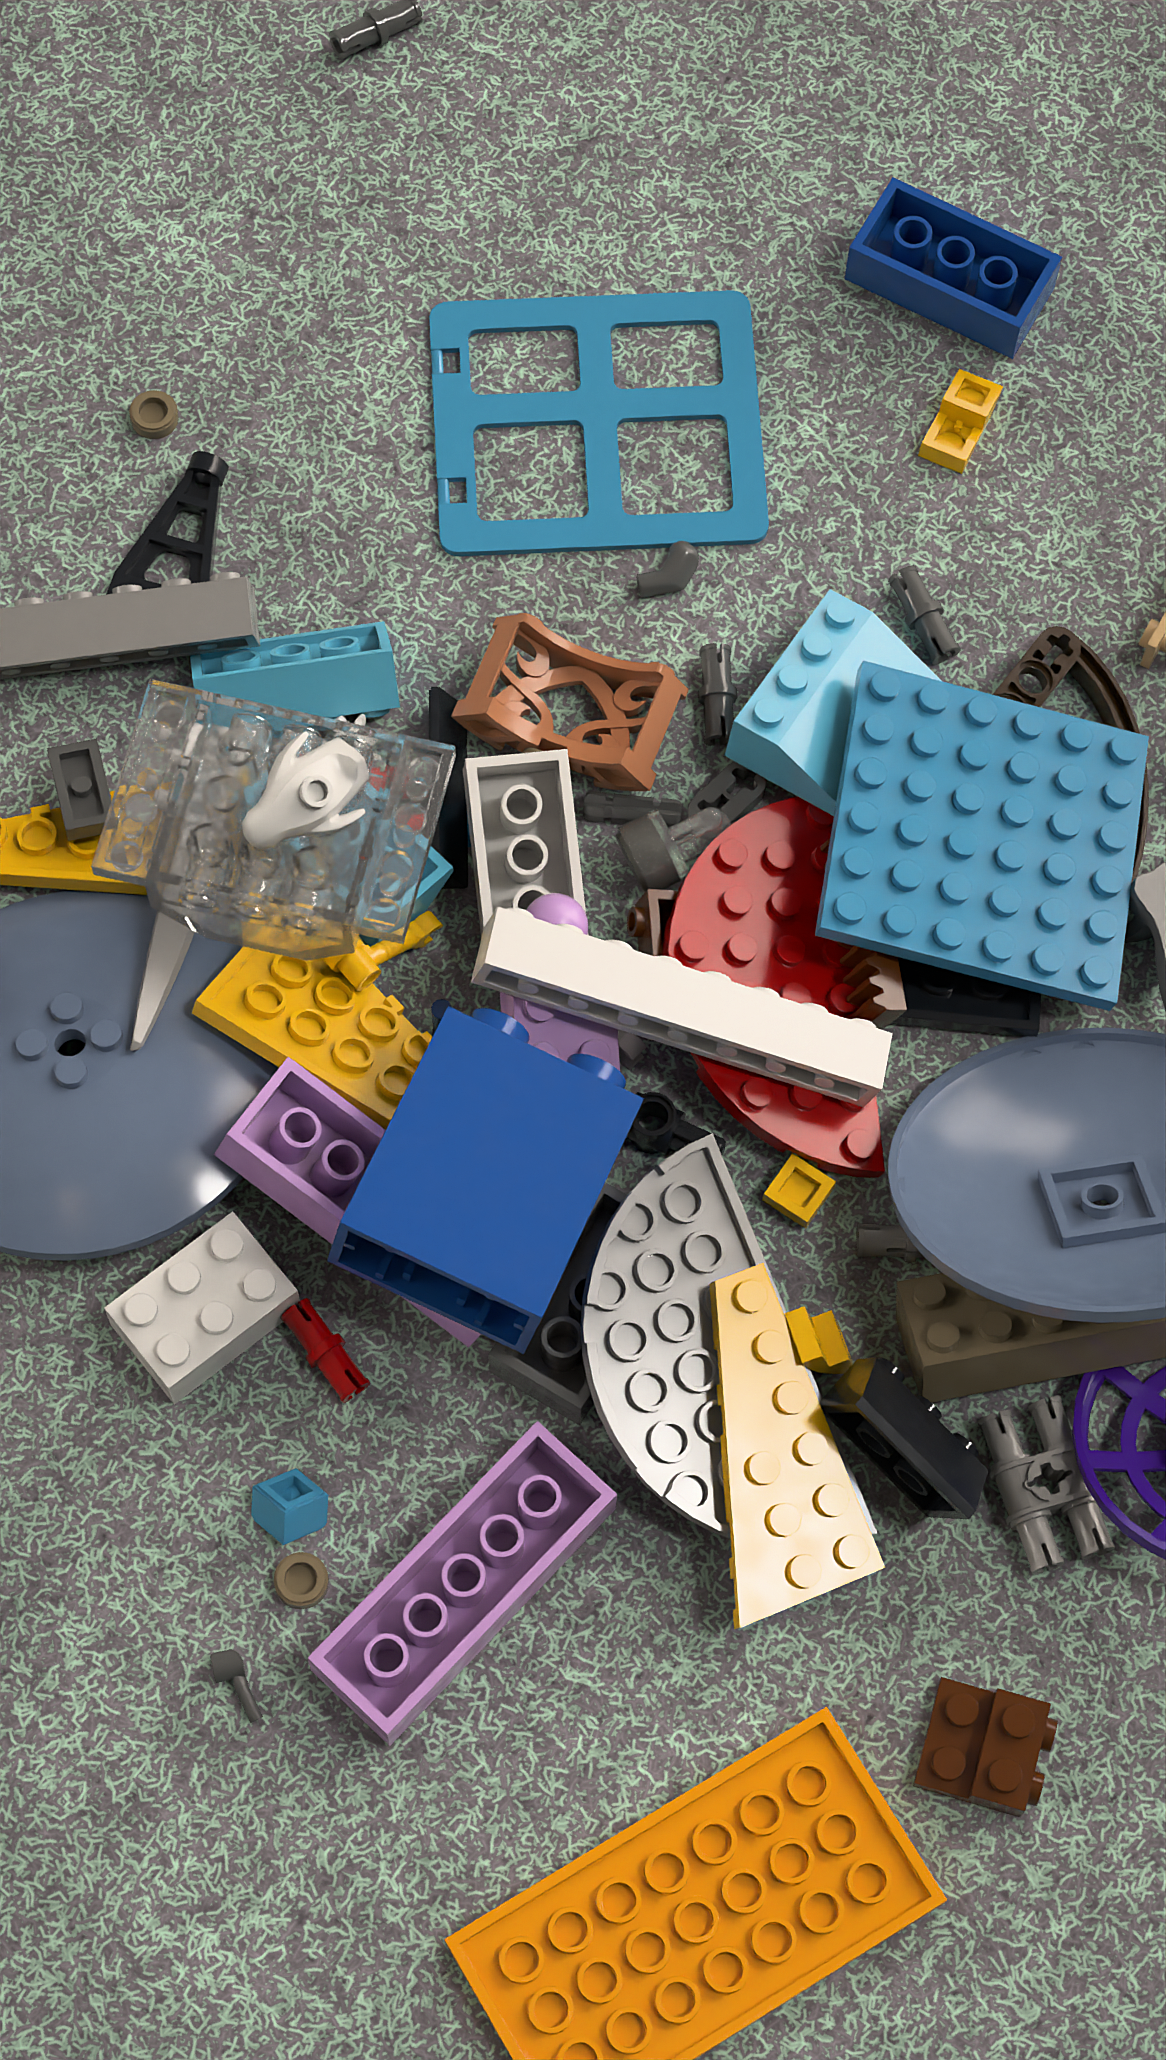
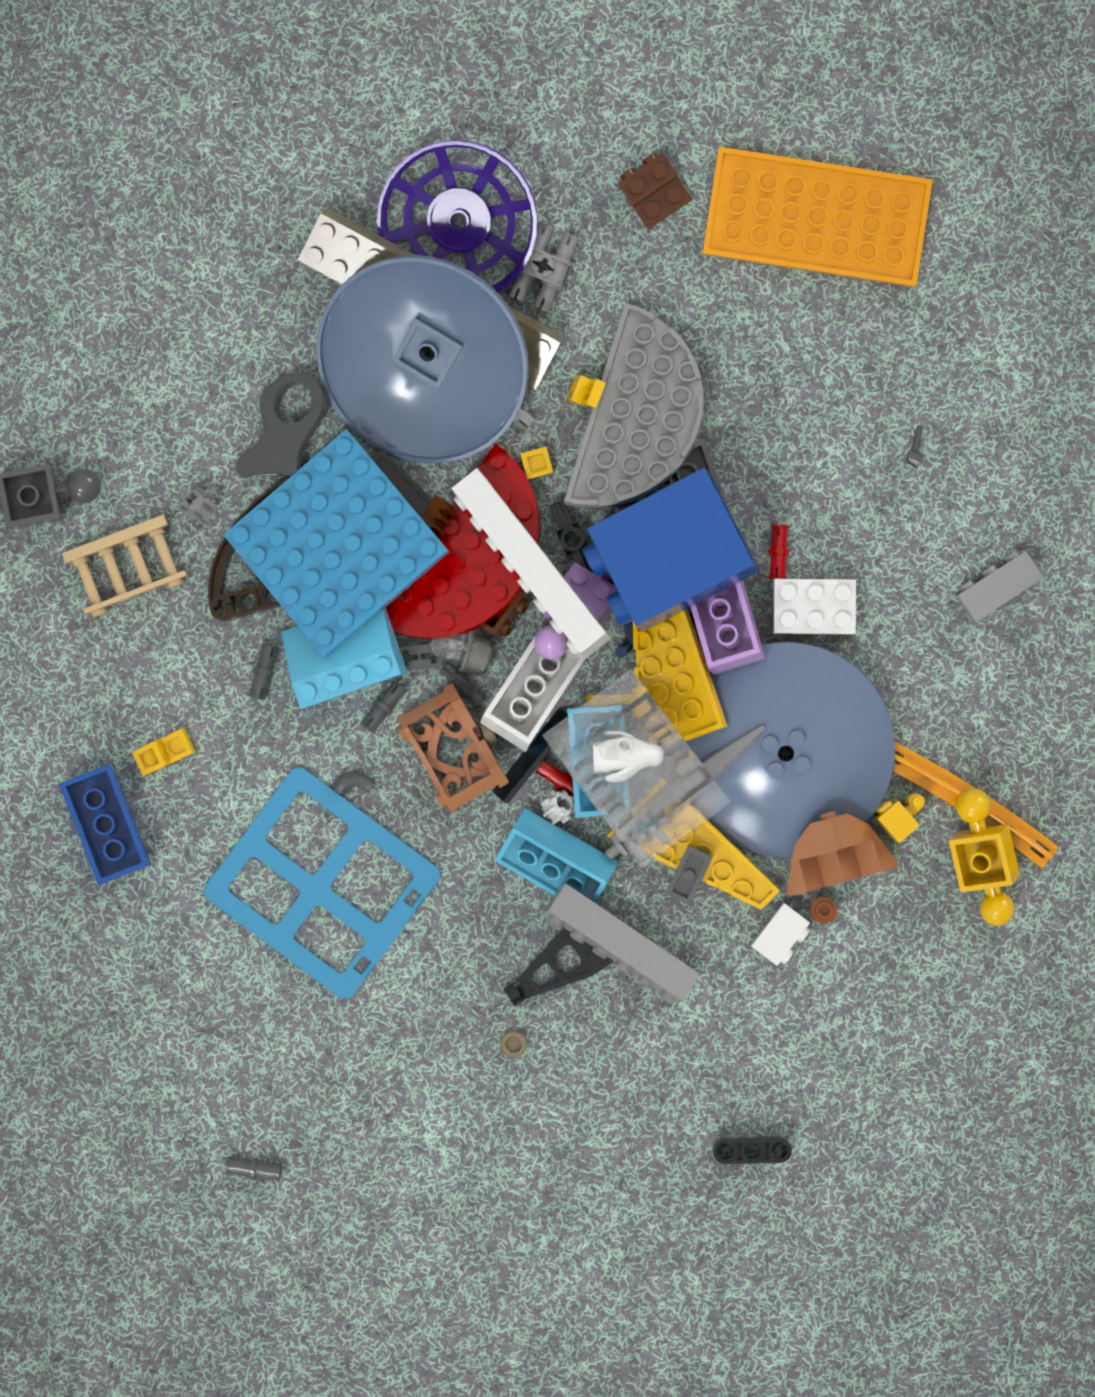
camera: 140 degrees left, 20 degrees up
(289, 1506) = (842, 501): dark azure slope -> none
(301, 1580) = (860, 468): dark tan tile -> none
(462, 1583) = (801, 411): lavender brick -> none
(783, 1477) = (647, 348): wing -> none
(906, 1439) = (586, 324): black slope -> none

